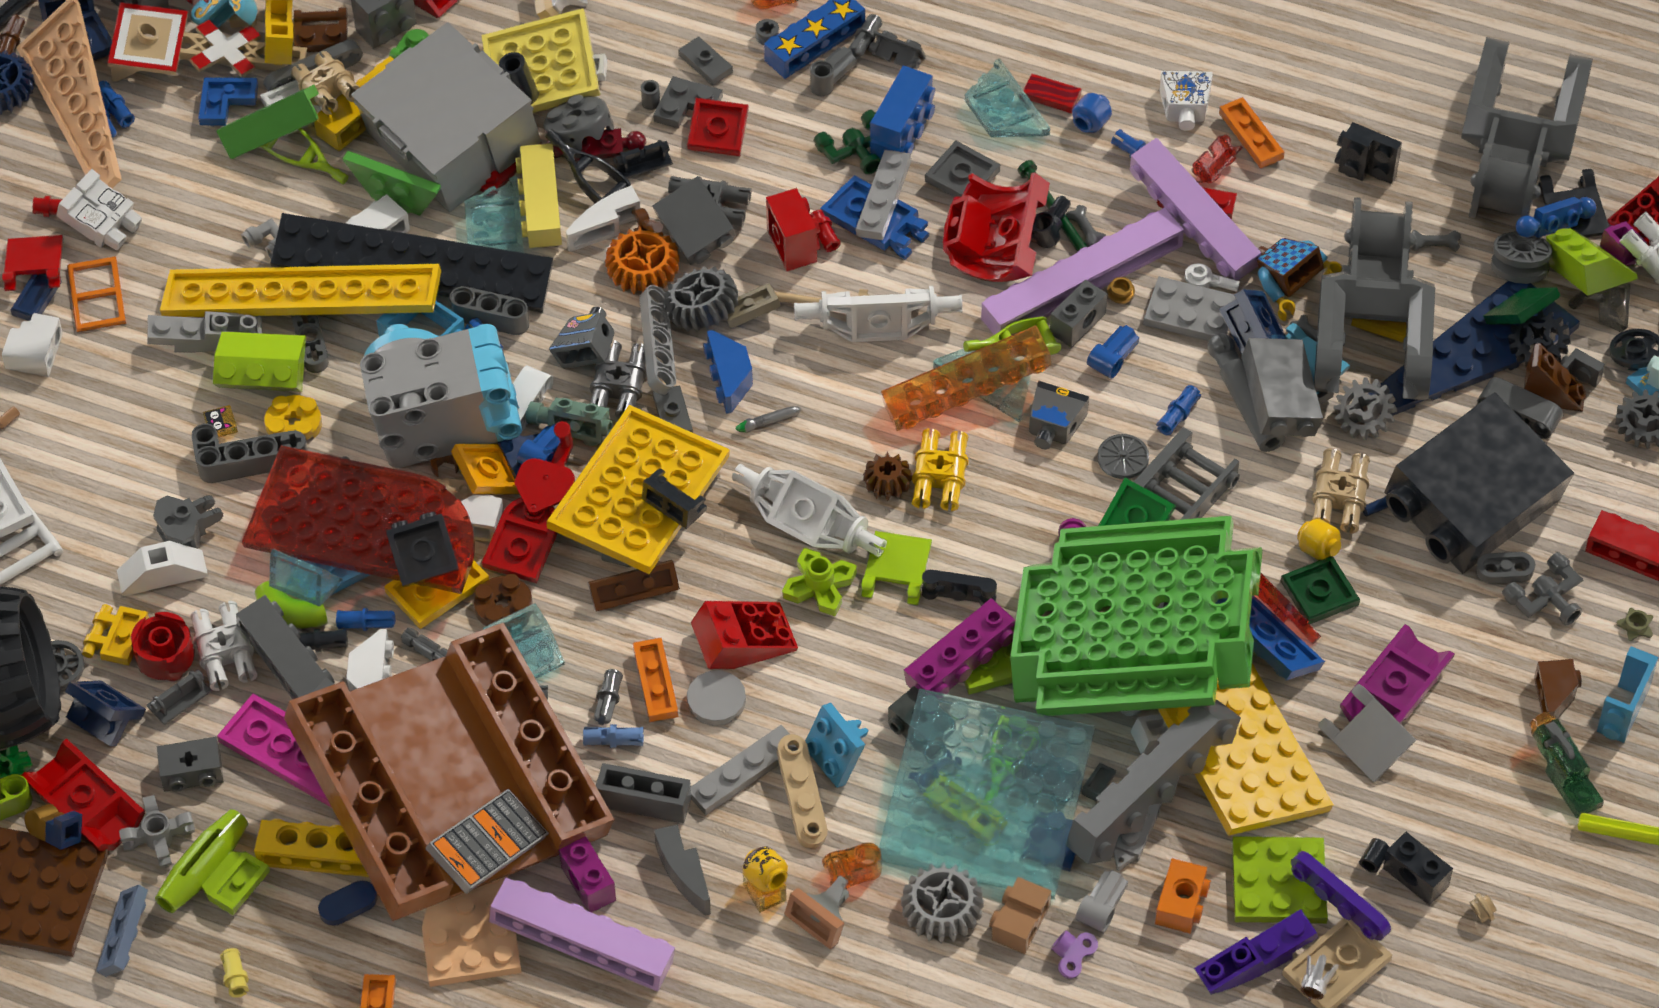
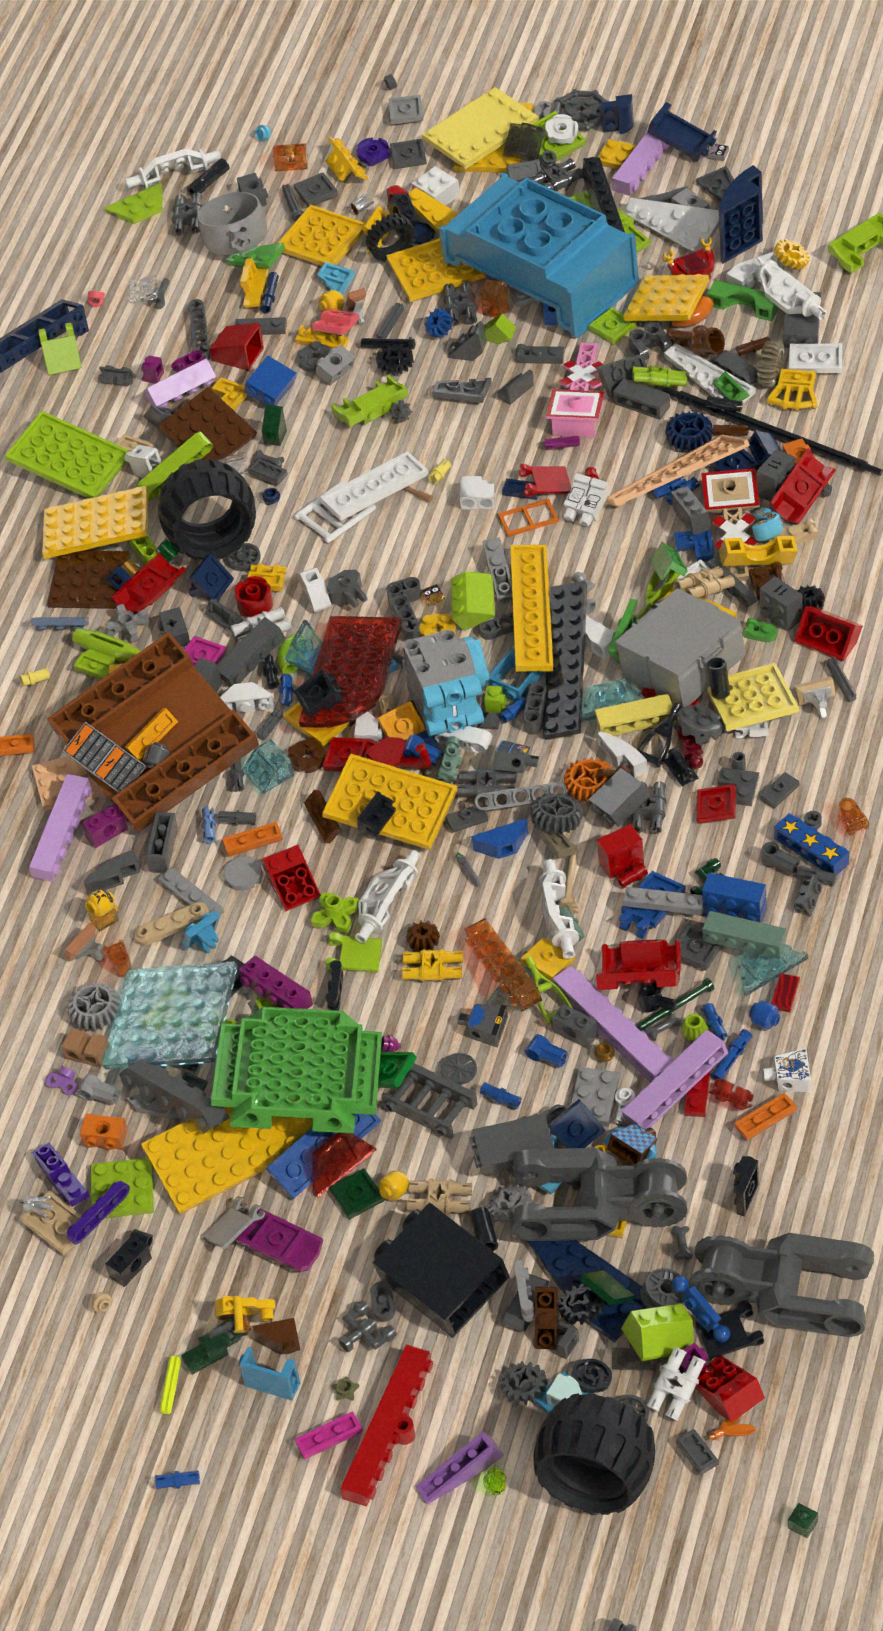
camera: 90 degrees right, 5 degrees down
(168, 90) = (690, 510): none -> dark grey brick
(453, 770) = (151, 733): none -> light orange plate
(495, 770) = (155, 754): none -> dark grey head
(950, 332) = (547, 958): none -> yellow plate
(965, 111) = (744, 934): none -> sand green brick
(1089, 169) = (714, 1021): none -> blue pin
(1097, 189) = (693, 1027): none -> lime piece
(1398, 444) = (483, 1227): none -> black pin
(1520, 722) = (237, 1307): none -> yellow piece
(1526, 392) = (524, 1291): none -> light grey plate

